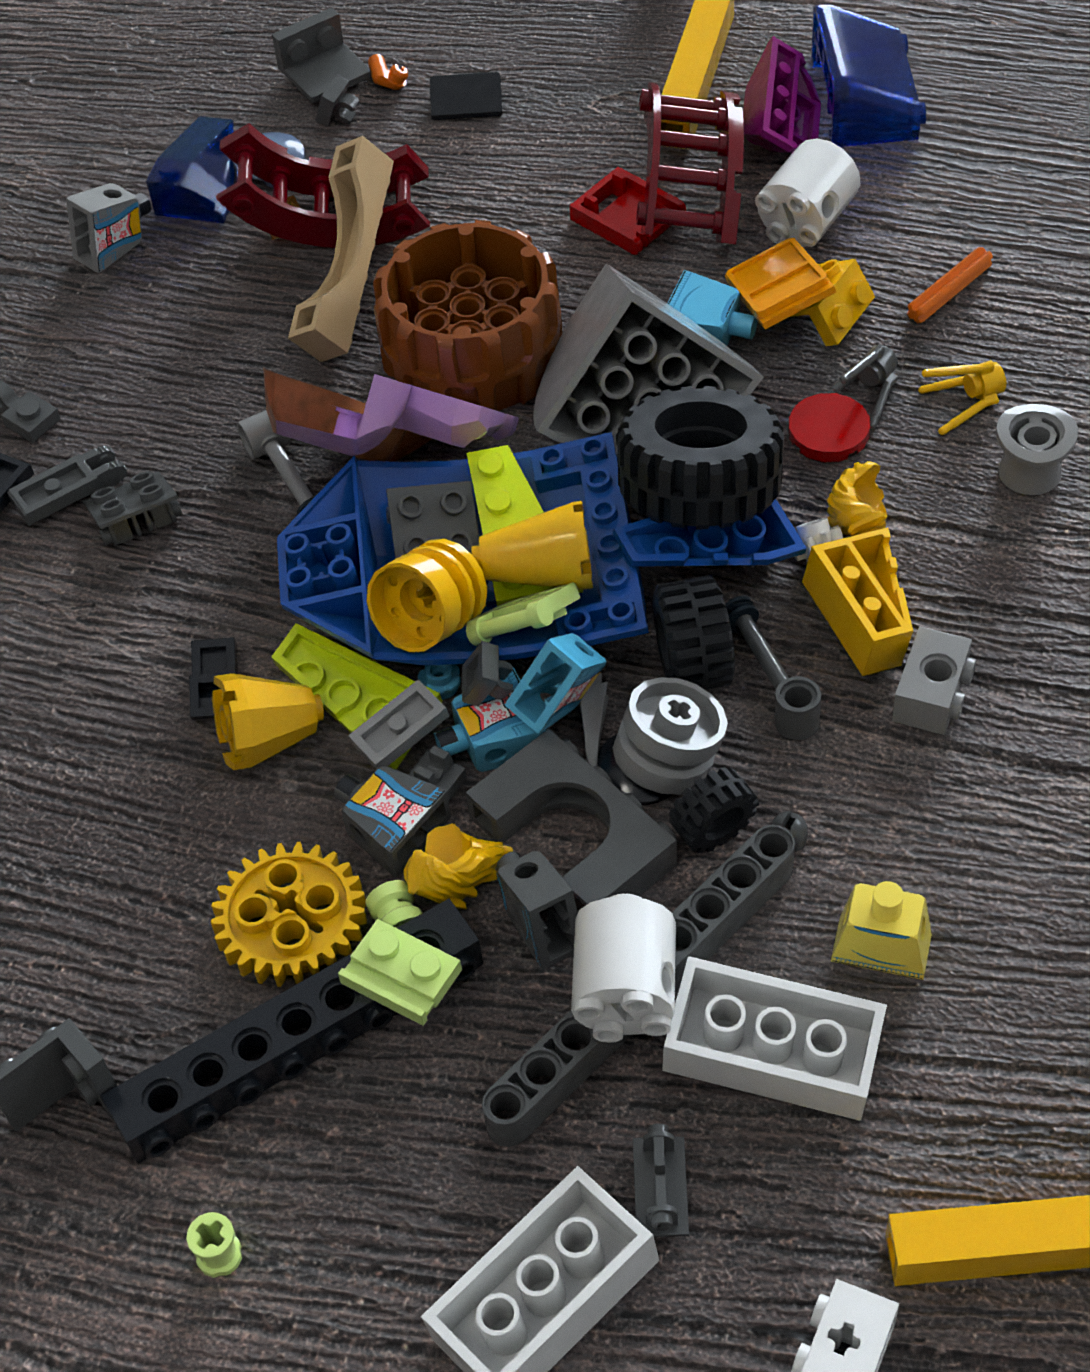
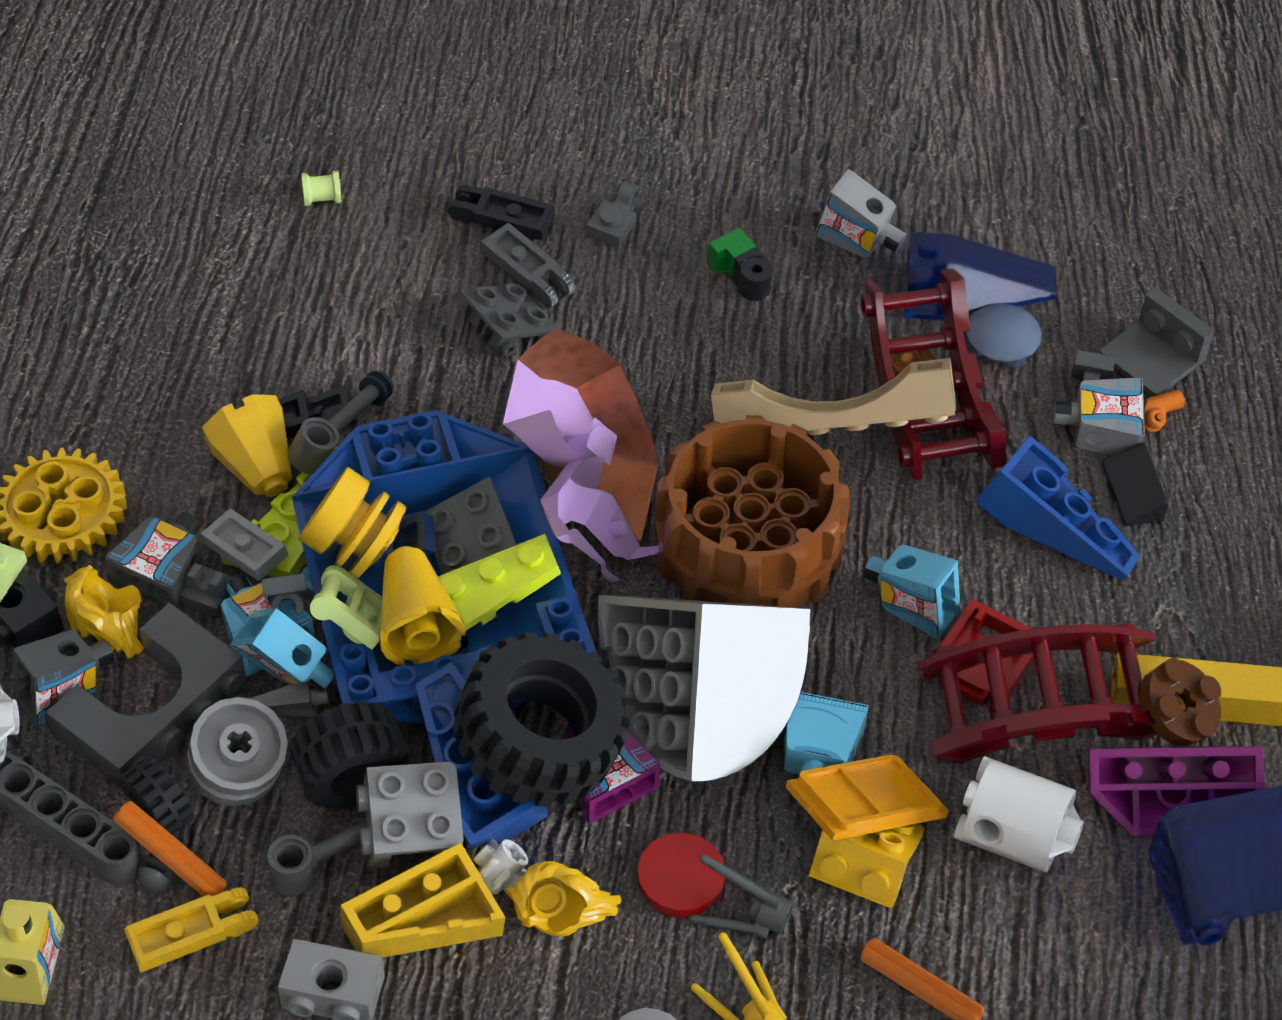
camera: 75 degrees right, 0 degrees up
(129, 317) = (742, 263): none -> leg
(283, 643) = (319, 437): none -> dark grey piece
(391, 99) = (1105, 415): none -> torso
(392, 903) = (52, 577): yellowish green wheel -> none
(485, 149) = (1043, 505): none -> blue wedge
(562, 223) = (918, 587): none -> medium azure torso
(721, 77) = (1196, 690): none -> reddish brown plate
(771, 592) = (409, 810): none -> light grey bracket
(778, 800) = (169, 850): none -> orange axle
(861, 802) = (189, 928): none -> yellow hinge

